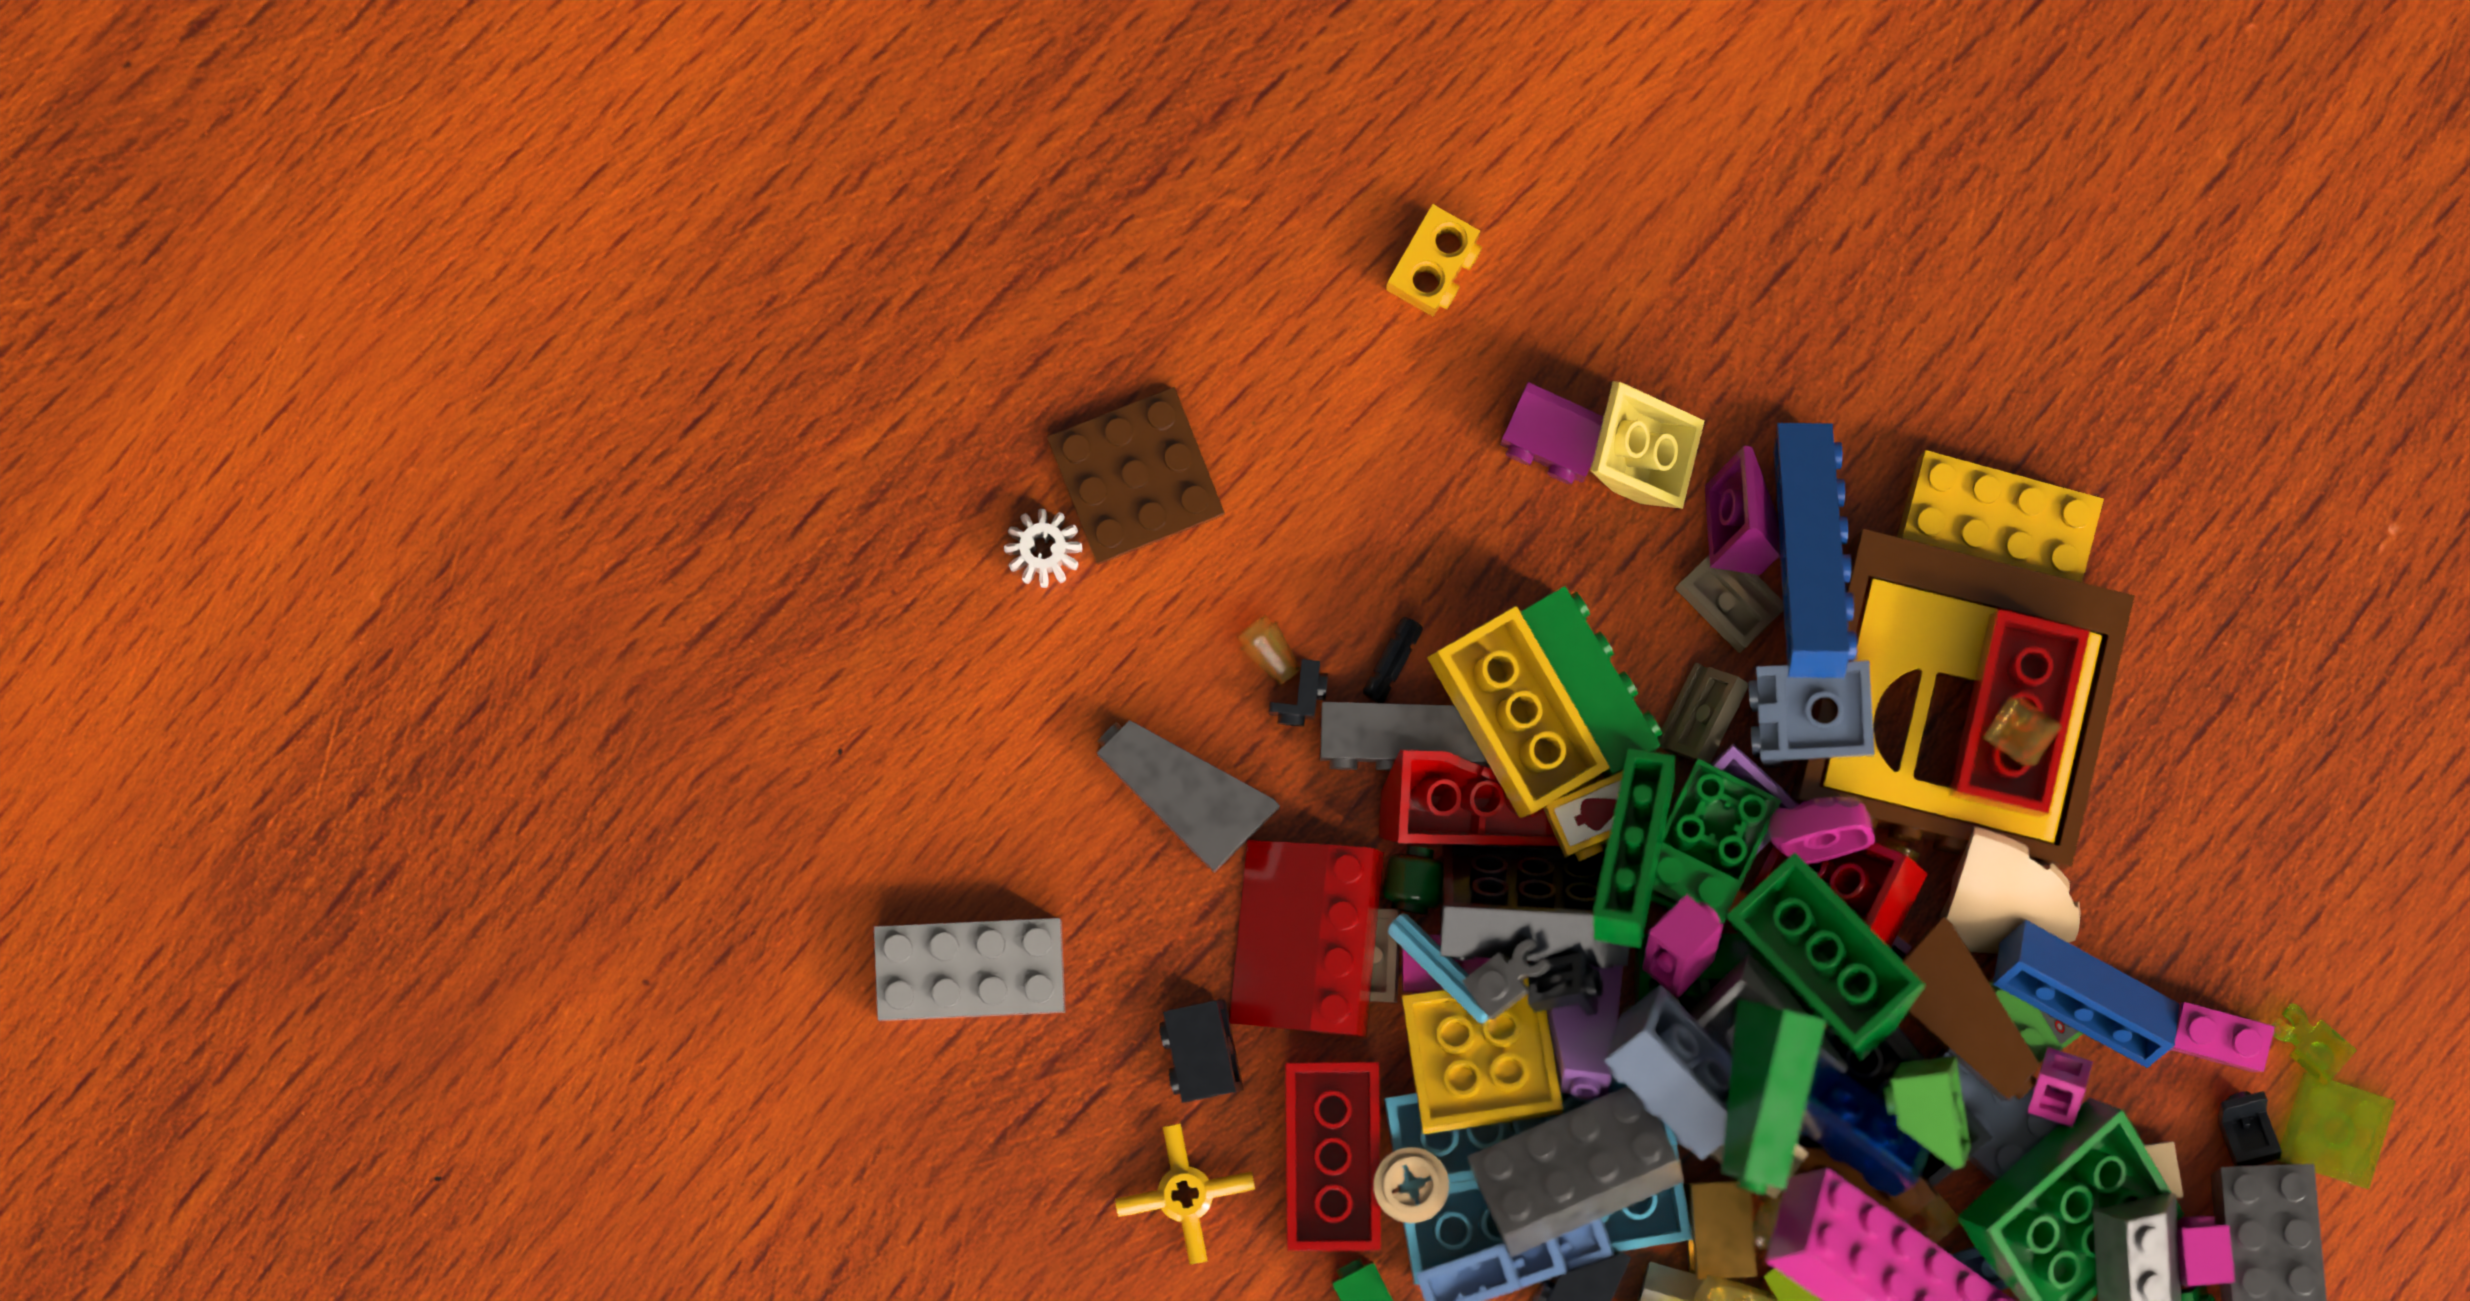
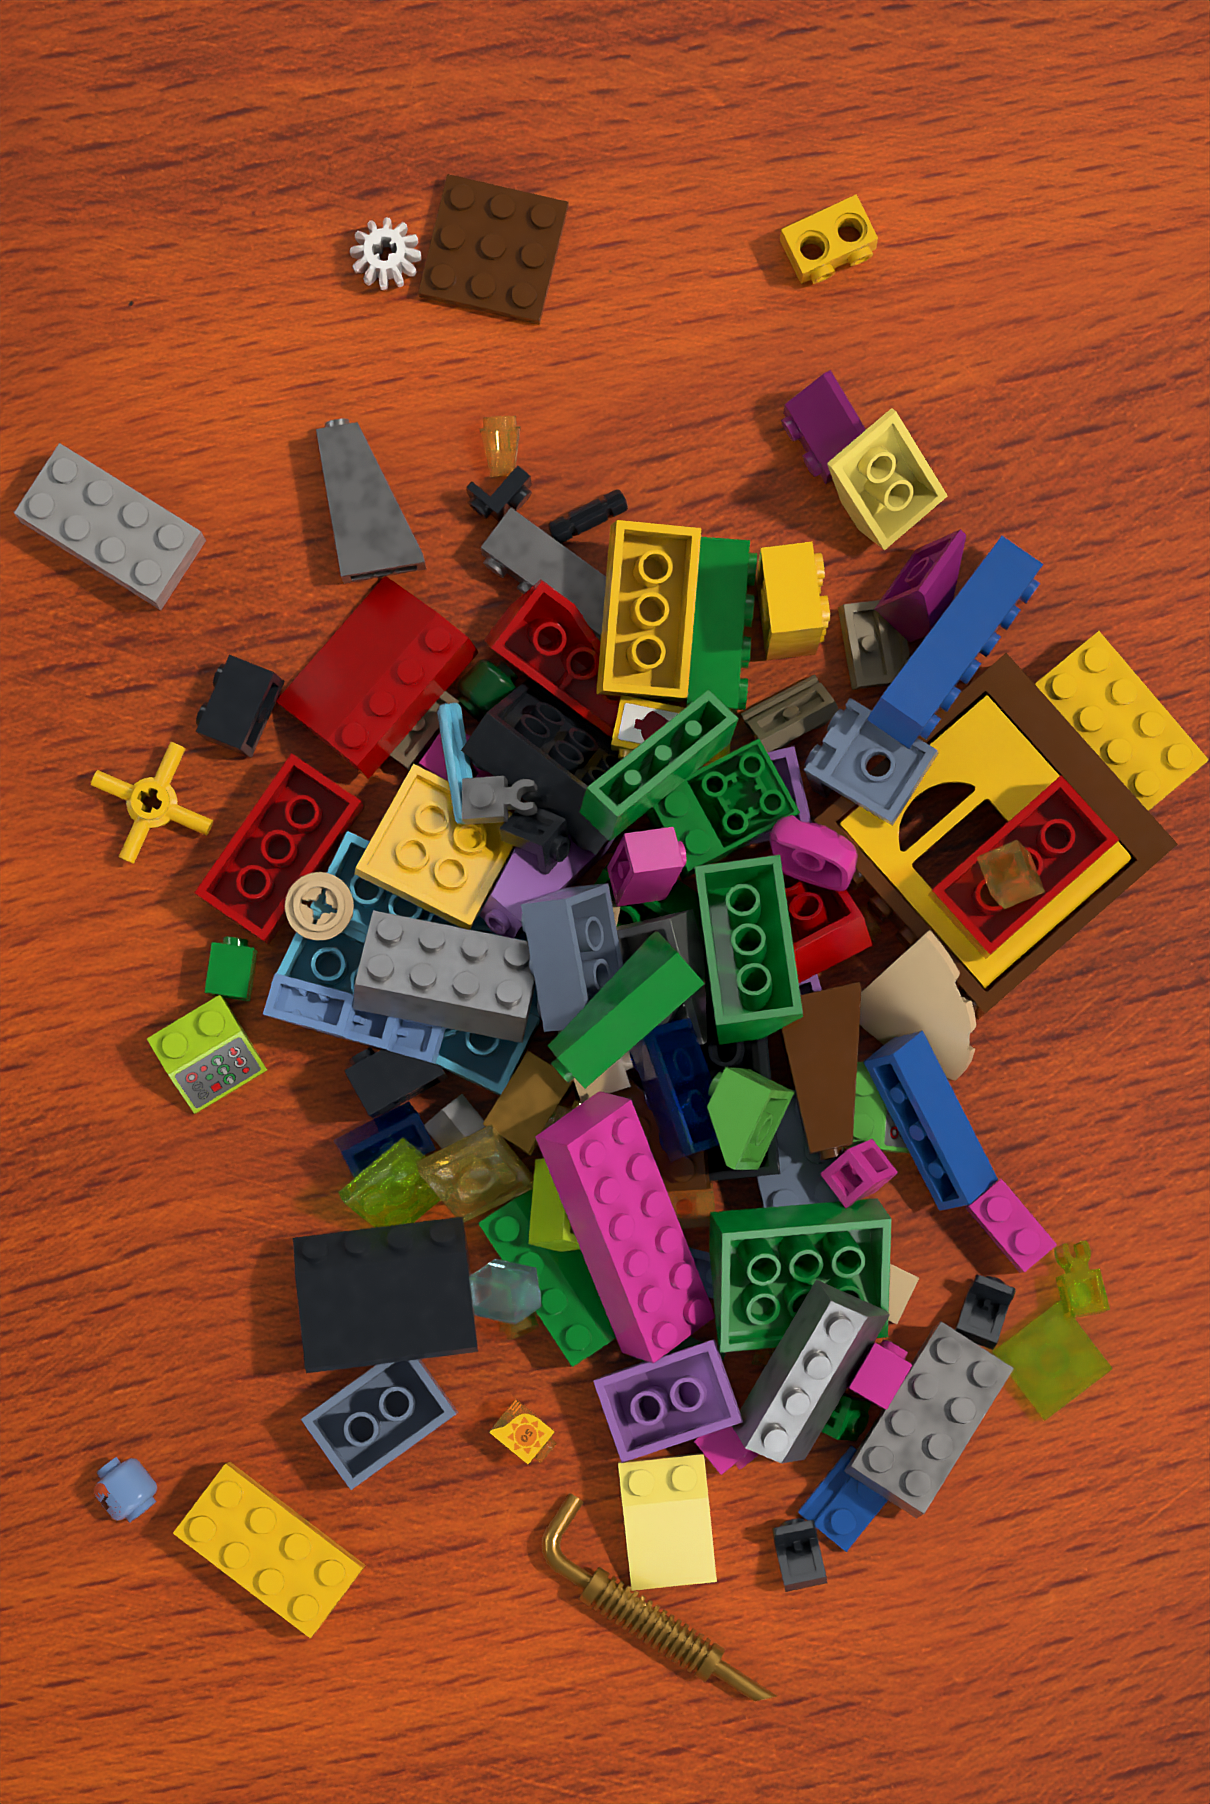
camera: 40 degrees right, 0 degrees up
(1641, 614) = (789, 600): none -> yellow brick

